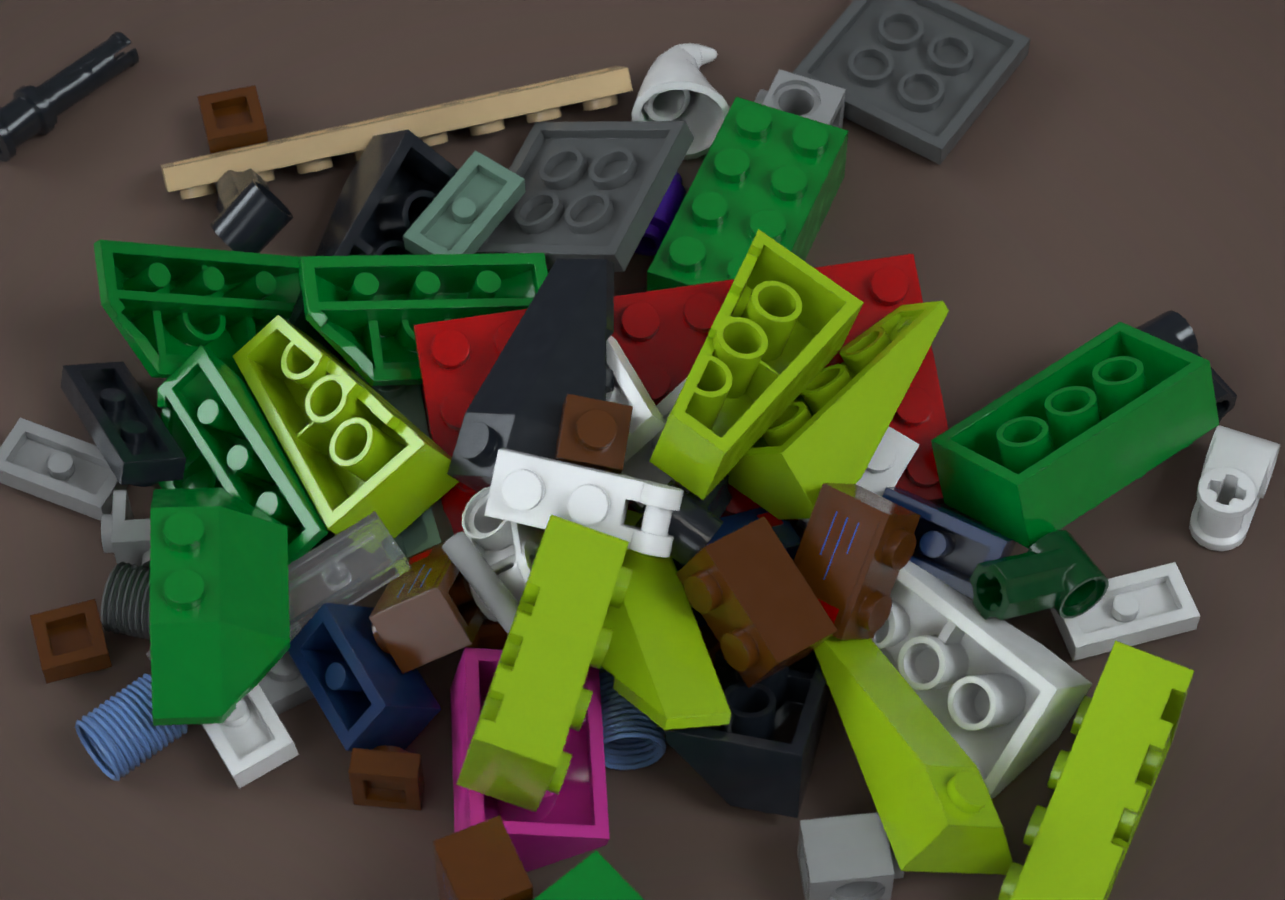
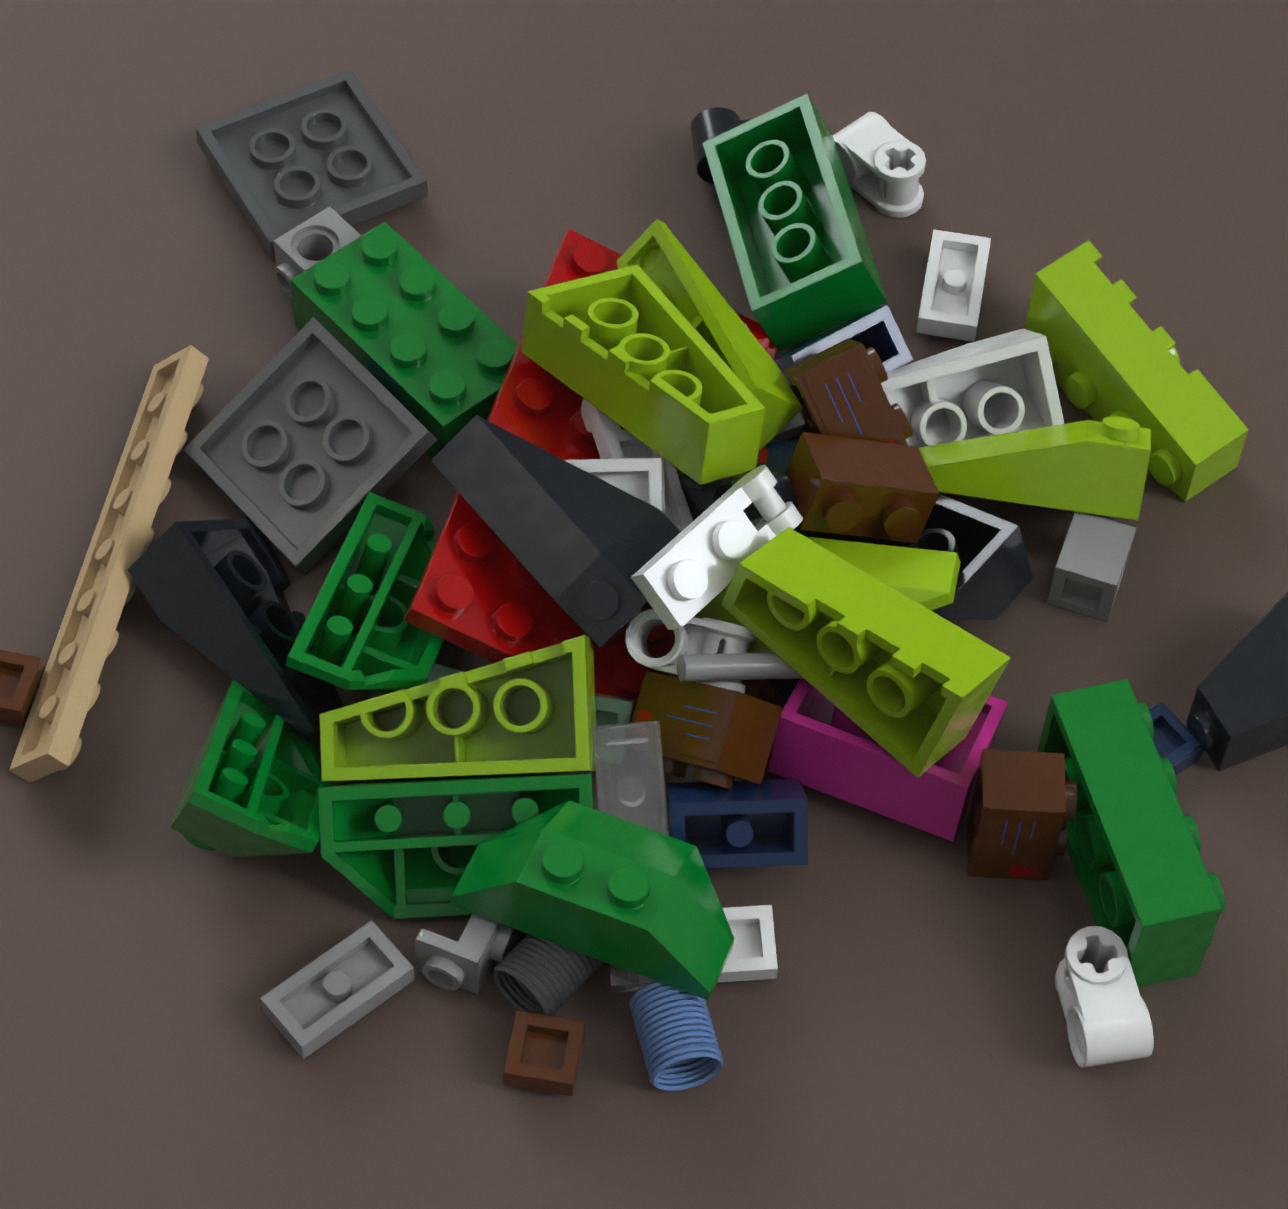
camera: 65 degrees left, 0 degrees up
(123, 423) = (332, 907): black plate -> none
(248, 212) = (160, 702): black piece -> none
(386, 778) = (838, 852): reddish brown plate -> none
(466, 209) = (273, 536): sand green plate -> none
(593, 433) = (654, 508): reddish brown plate -> none
(680, 92) = (238, 330): white hat -> none
(1047, 576) = (924, 308): dark green piece -> none

